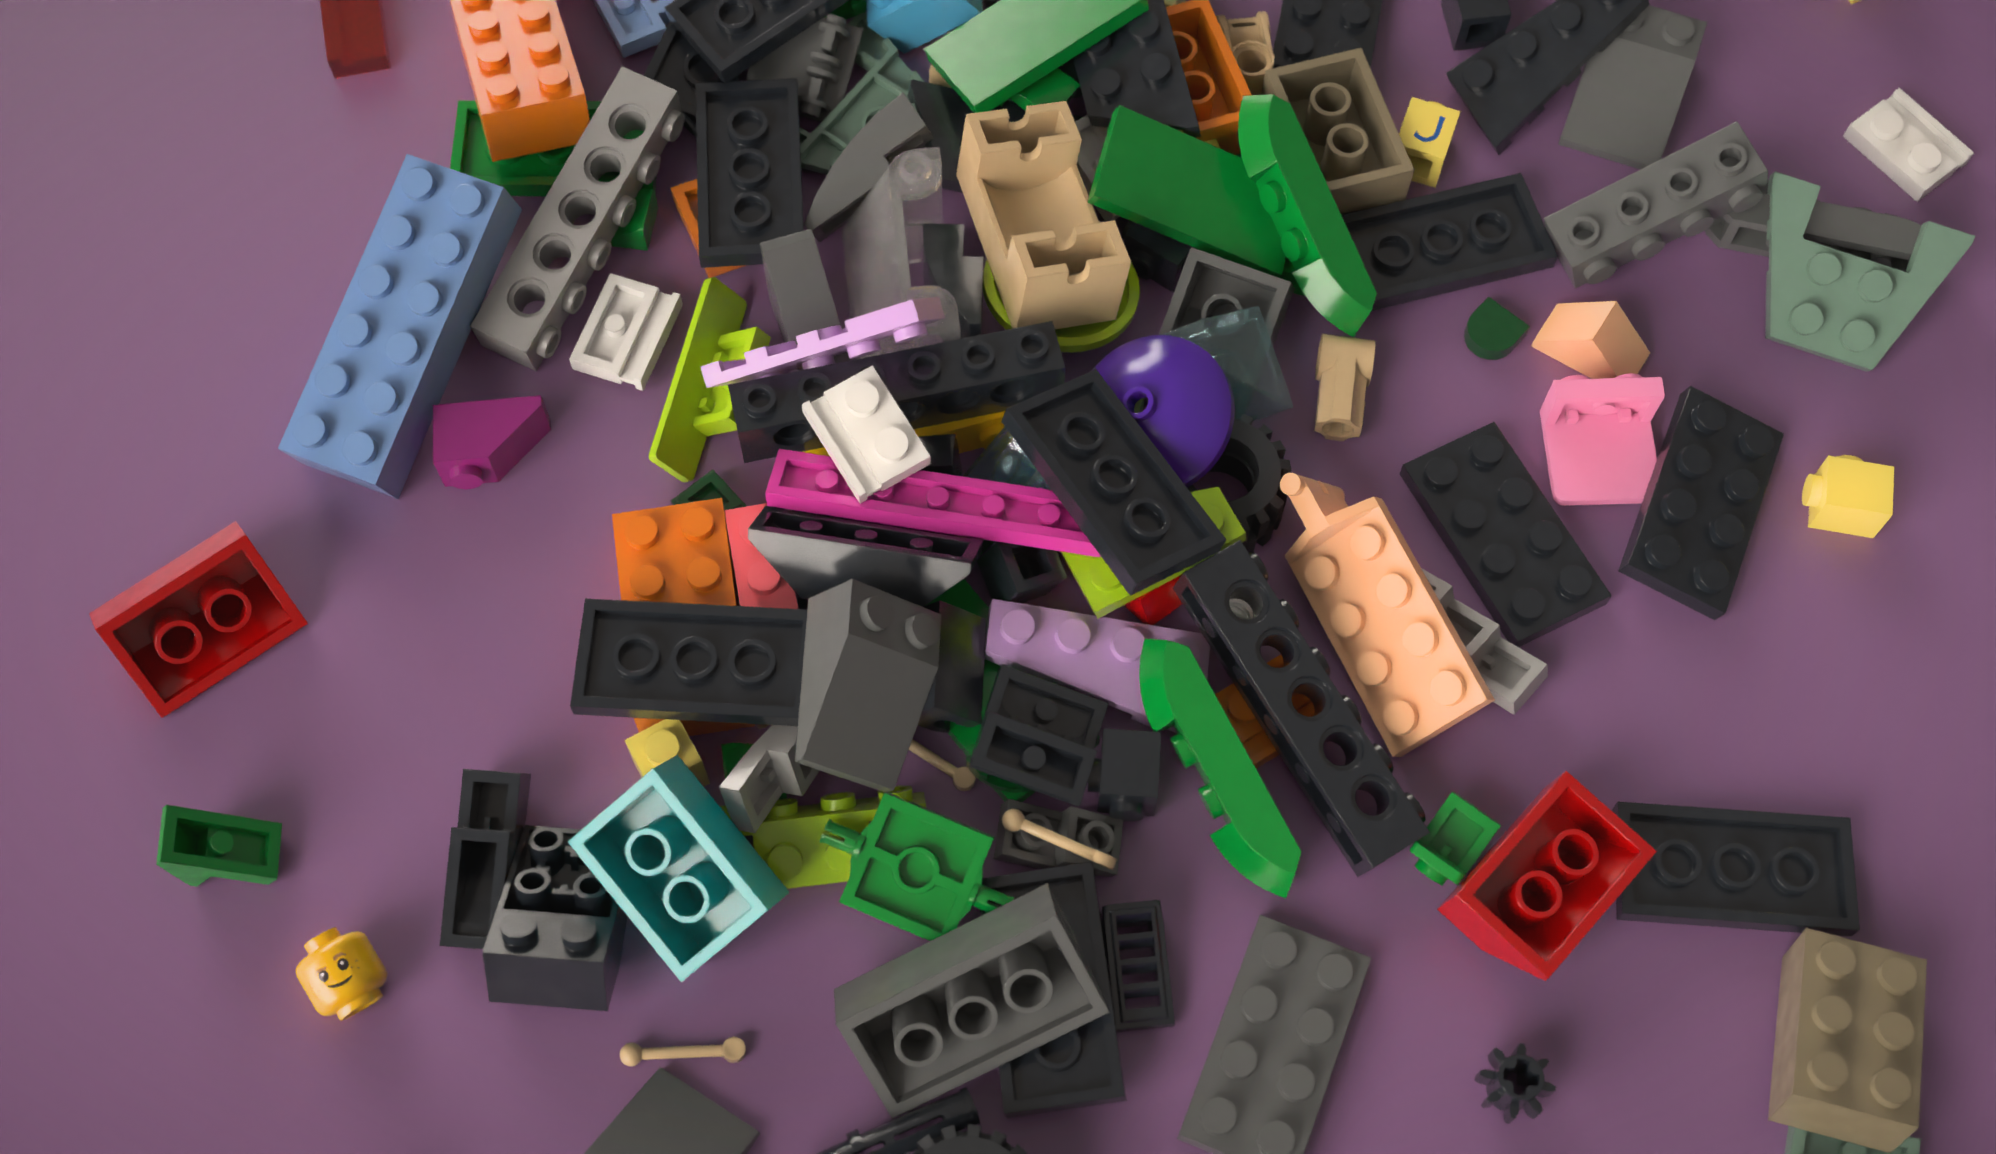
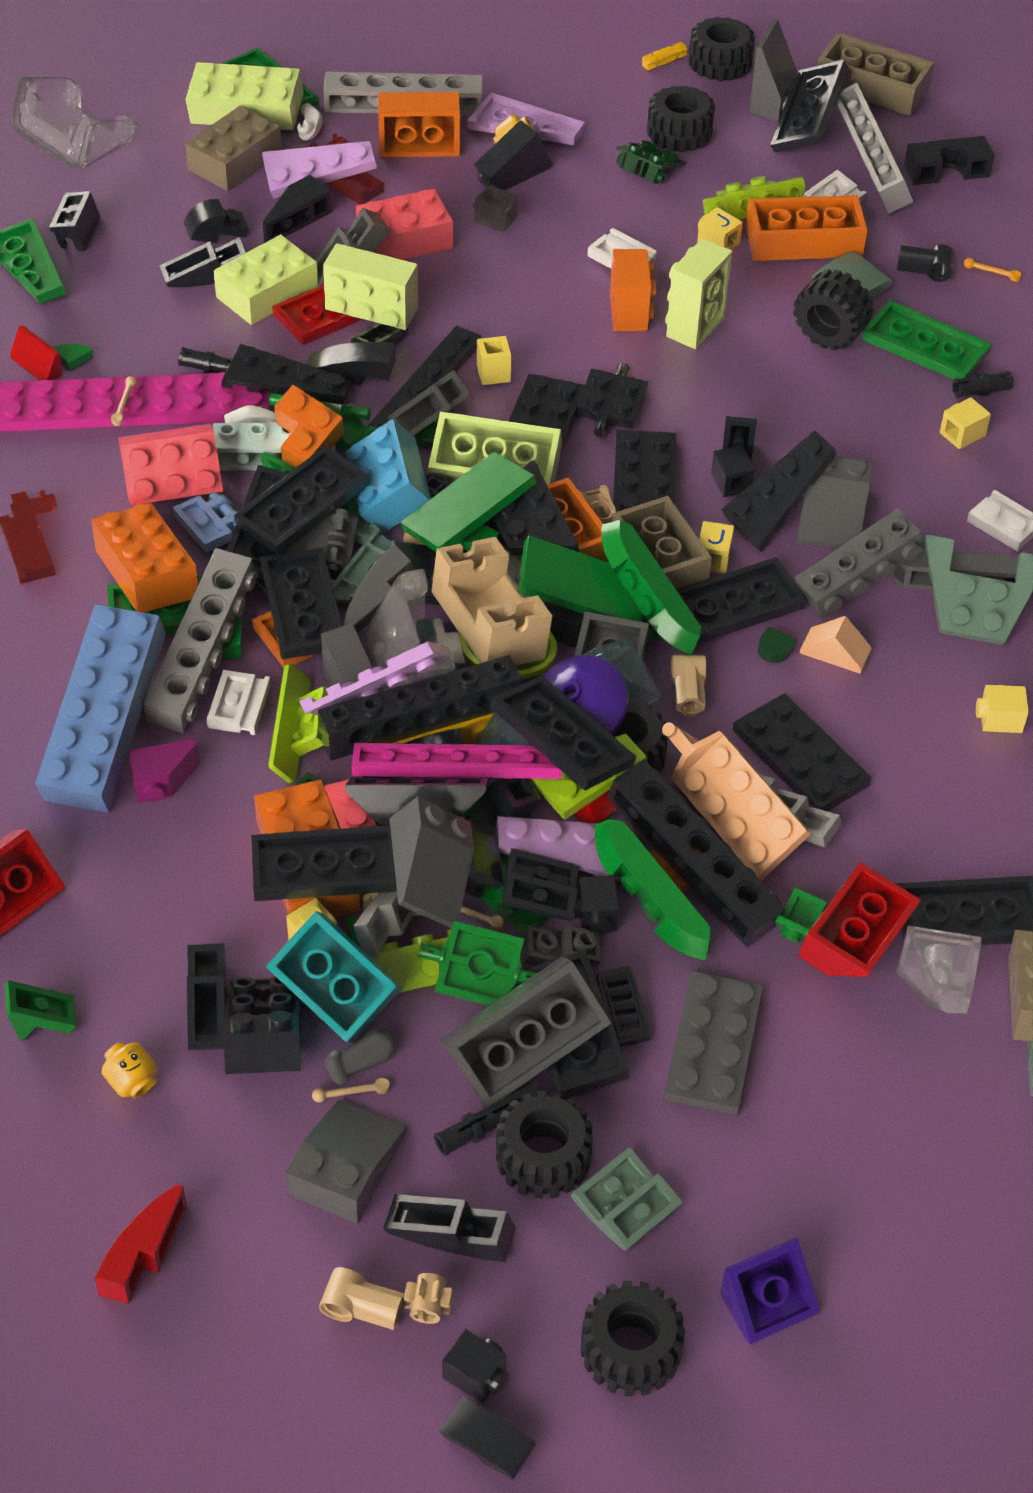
camera: 10 degrees left, 15 degrees down
(726, 989) = (370, 1051): none -> dark grey piece
(866, 434) = (409, 724): white plate -> none
(1014, 820) = (534, 933): tan hinge -> none
(1528, 1075) = (860, 1039): black gear -> none
(1600, 438) = (850, 693): bright pink bracket -> none
(1670, 979) = (940, 967): none -> clear slope
(1701, 503) = (916, 722): black plate -> none

